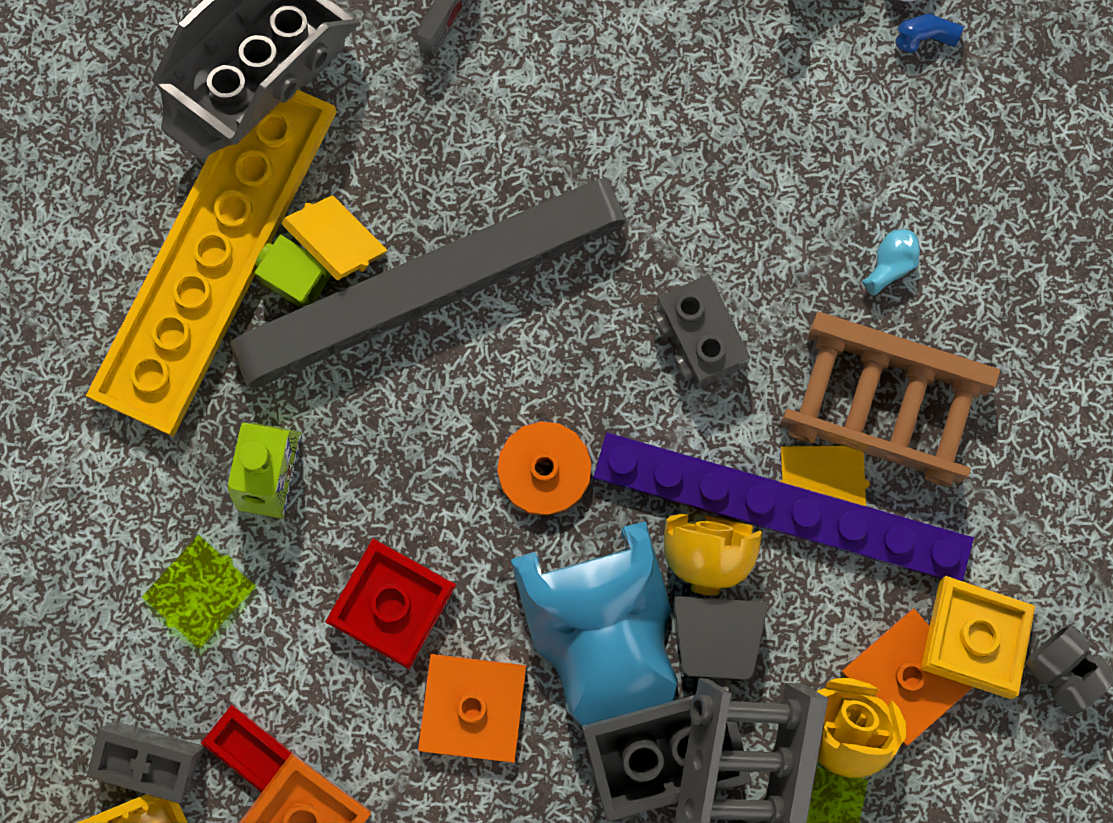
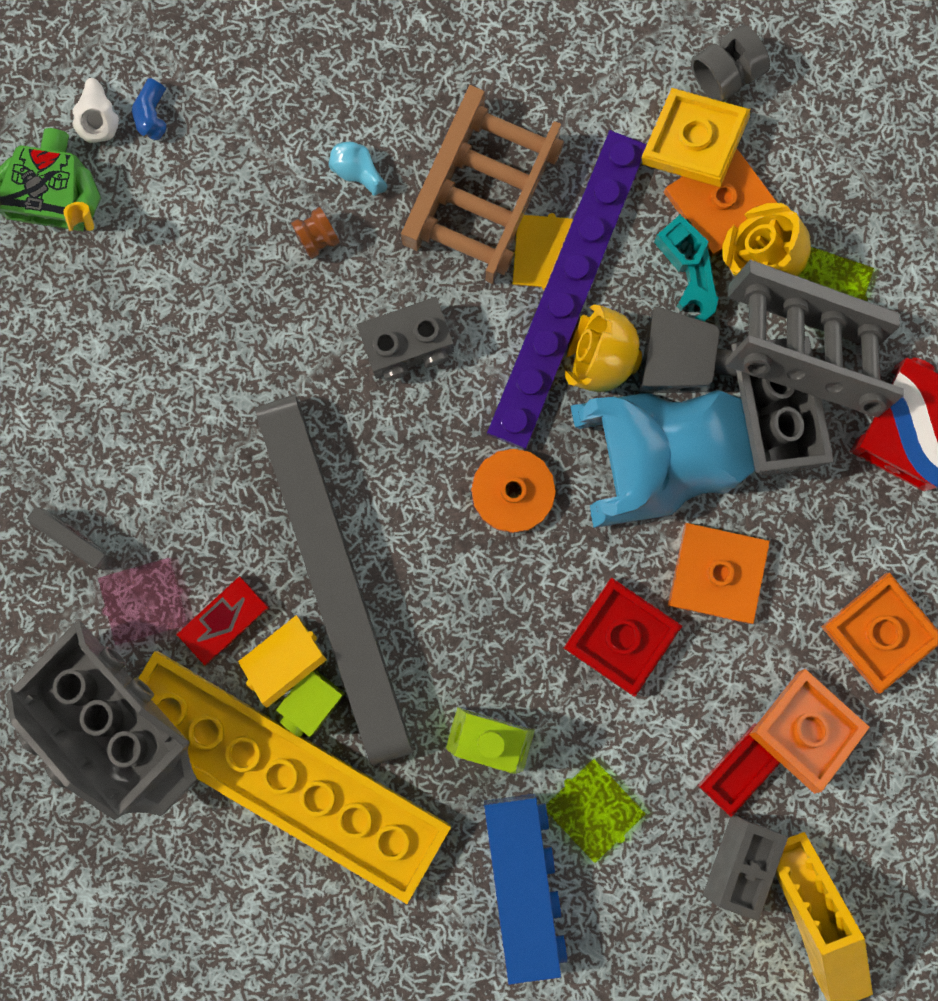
camera: 85 degrees left, 5 degrees up
(109, 518) = (523, 889): none -> blue brick
(374, 174) = (222, 621): none -> red tile
(389, 90) = (142, 601): none -> clear pink piece
(803, 658) = (698, 270): none -> teal piece
(810, 222) = (315, 232): none -> dark orange wheel

